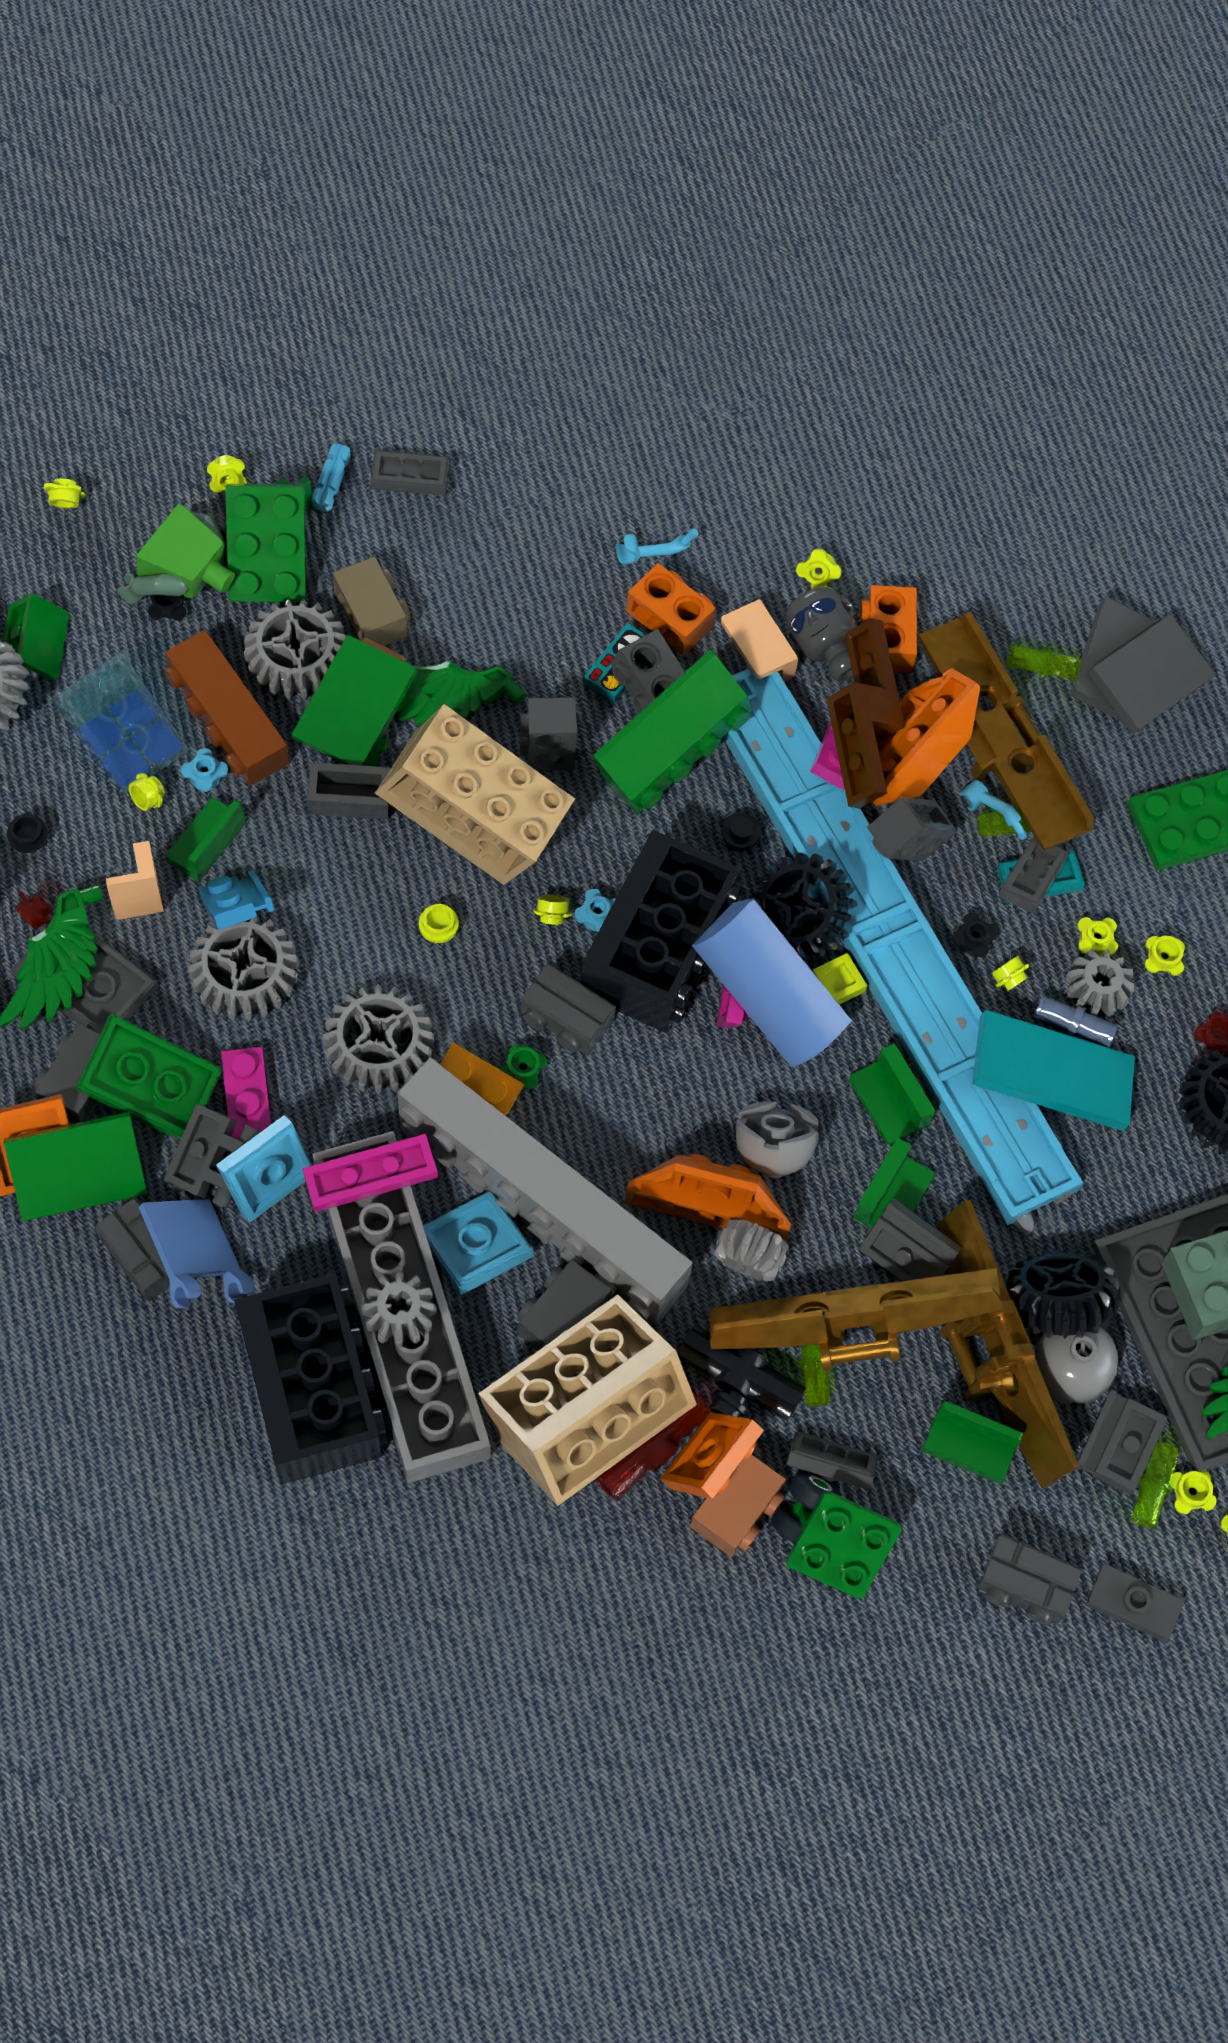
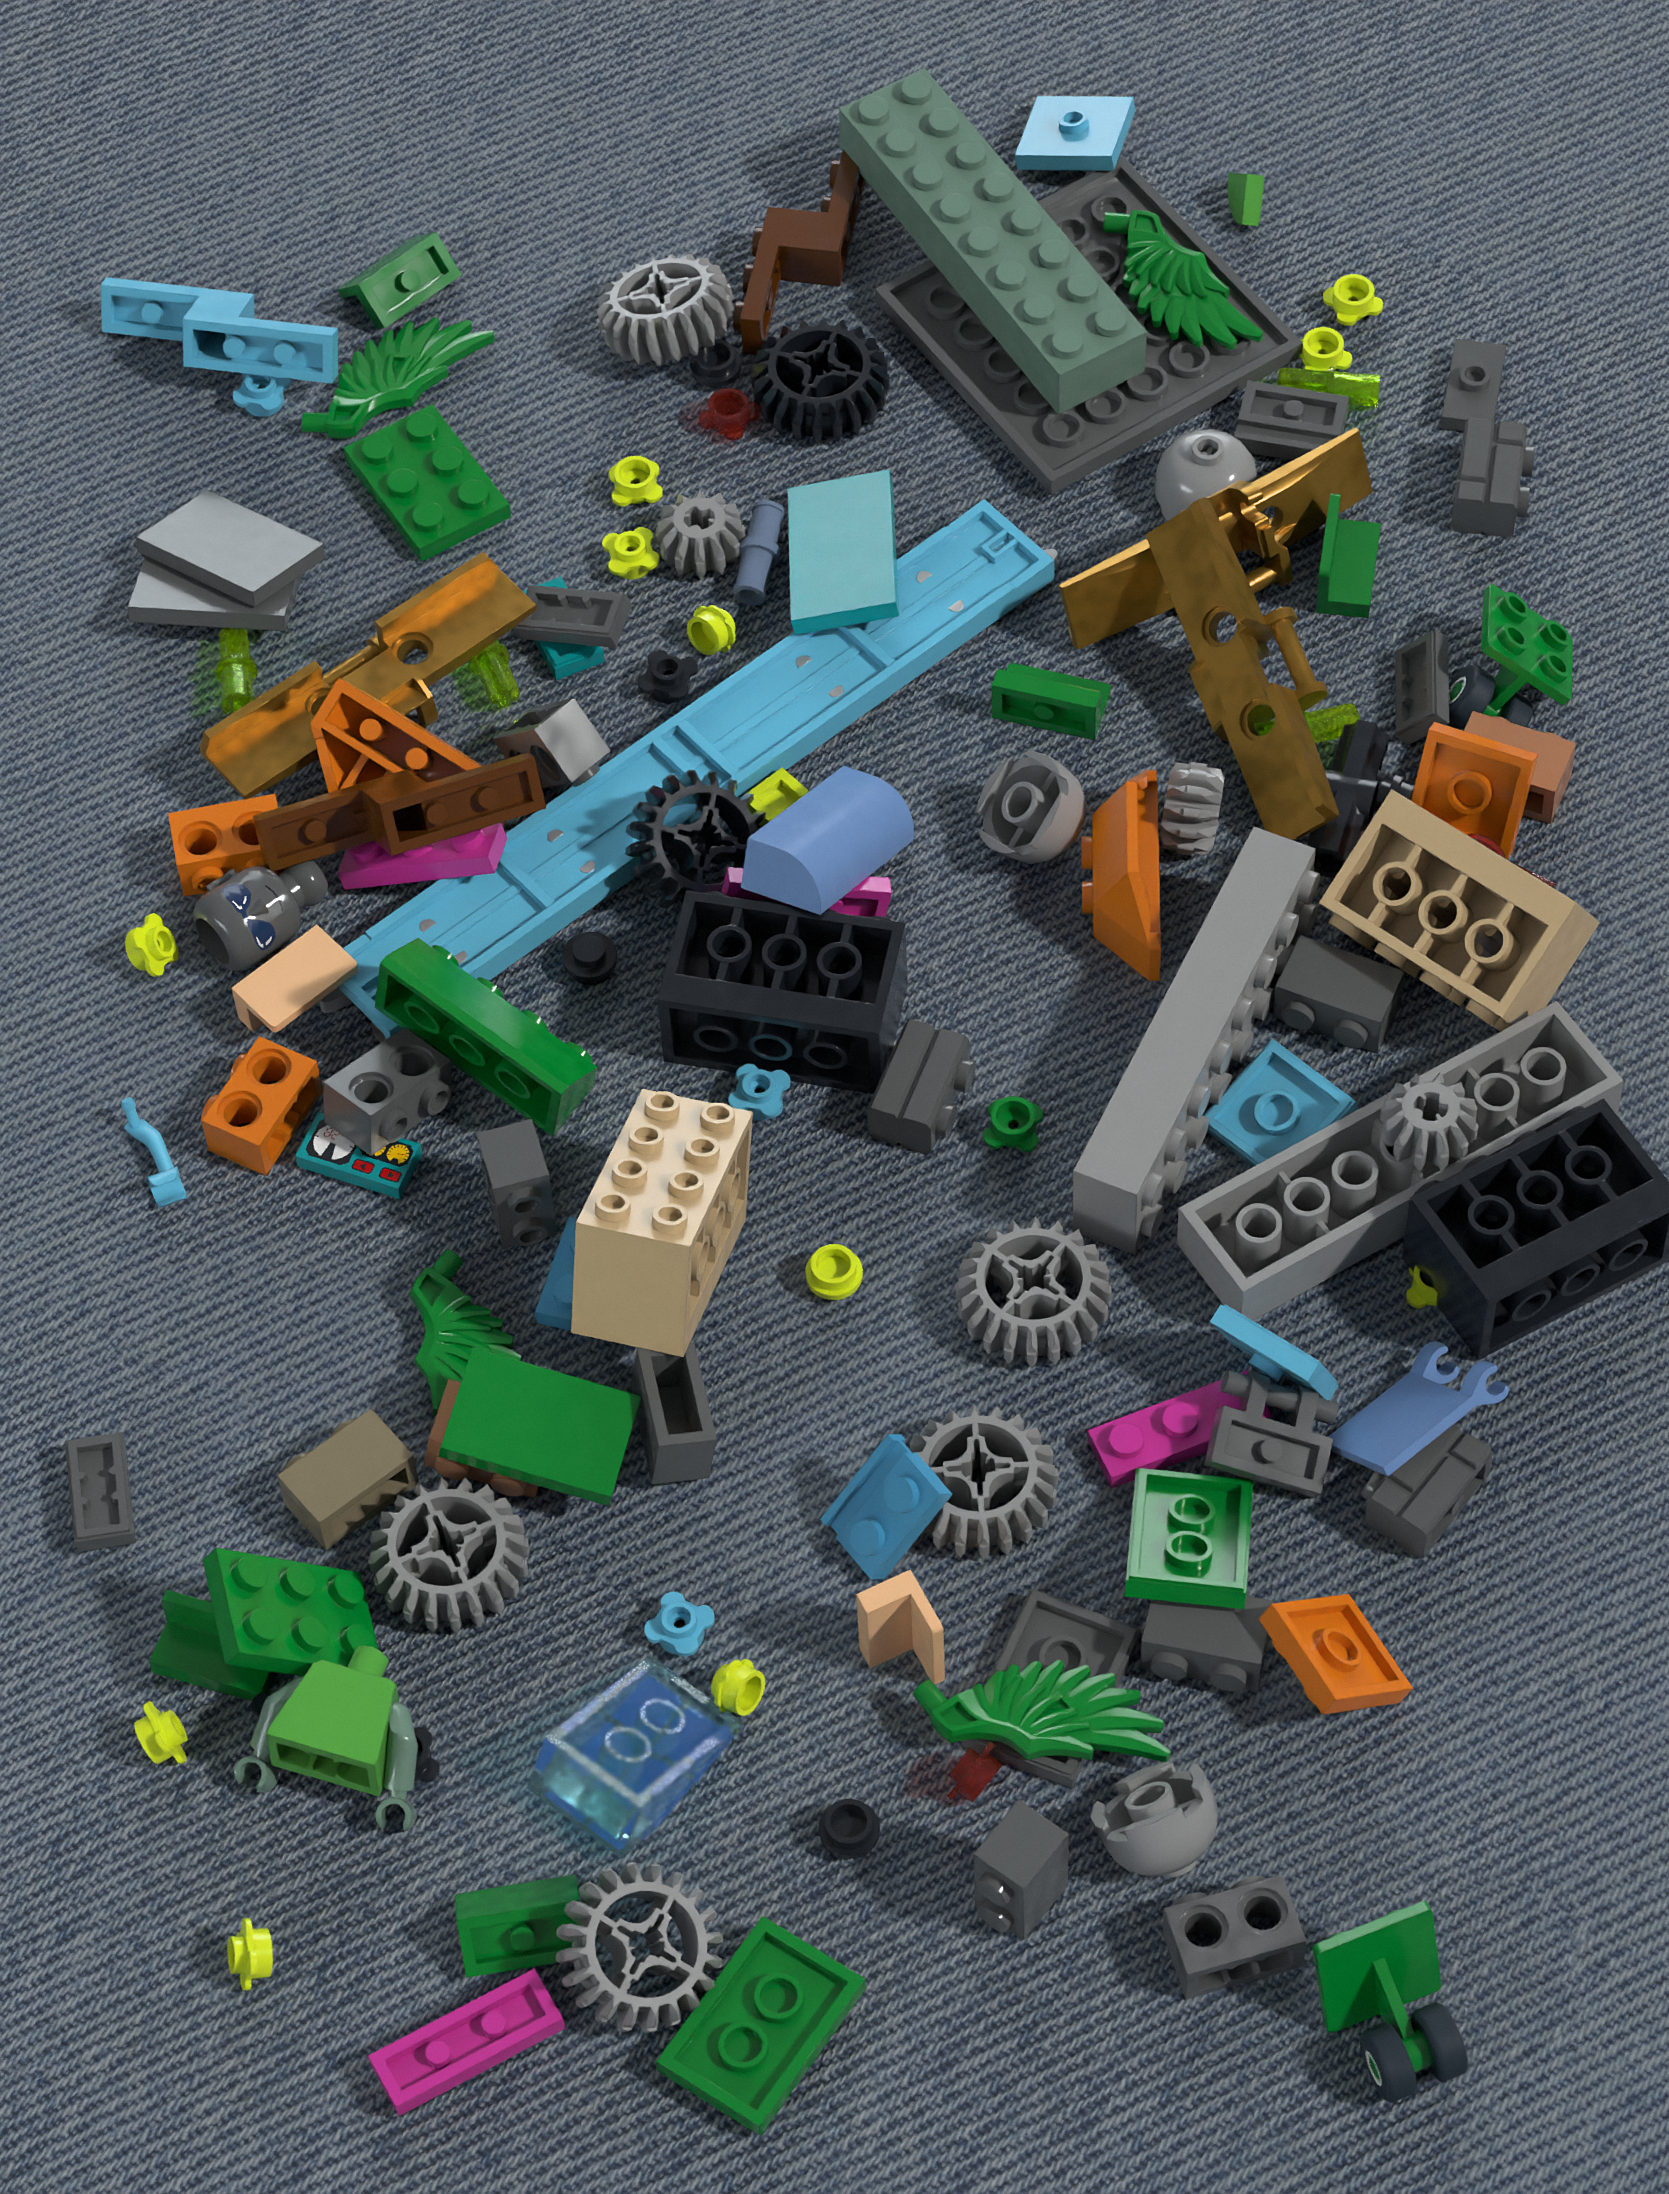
camera: 95 degrees left, 10 degrees down
(75, 1166) = (1345, 1590): green tile -> none
(206, 838) = (789, 1586): green panel -> none
(226, 708) = (572, 1619): dark orange brick -> none
(331, 477) = (121, 1597): medium azure axle -> none
(370, 1173) = (1255, 1204): dark pink plate -> none
(483, 1078) = (1046, 1173): light orange plate -> none
(553, 909) = (774, 1139): neon yellow plate -> none
(892, 1096) = (920, 719): green panel -> none
(909, 1245) = (1128, 656): dark grey plate -> none
(978, 794) = (458, 709): medium azure piece -> none
(1064, 1293) = (1139, 480): black gear -> none

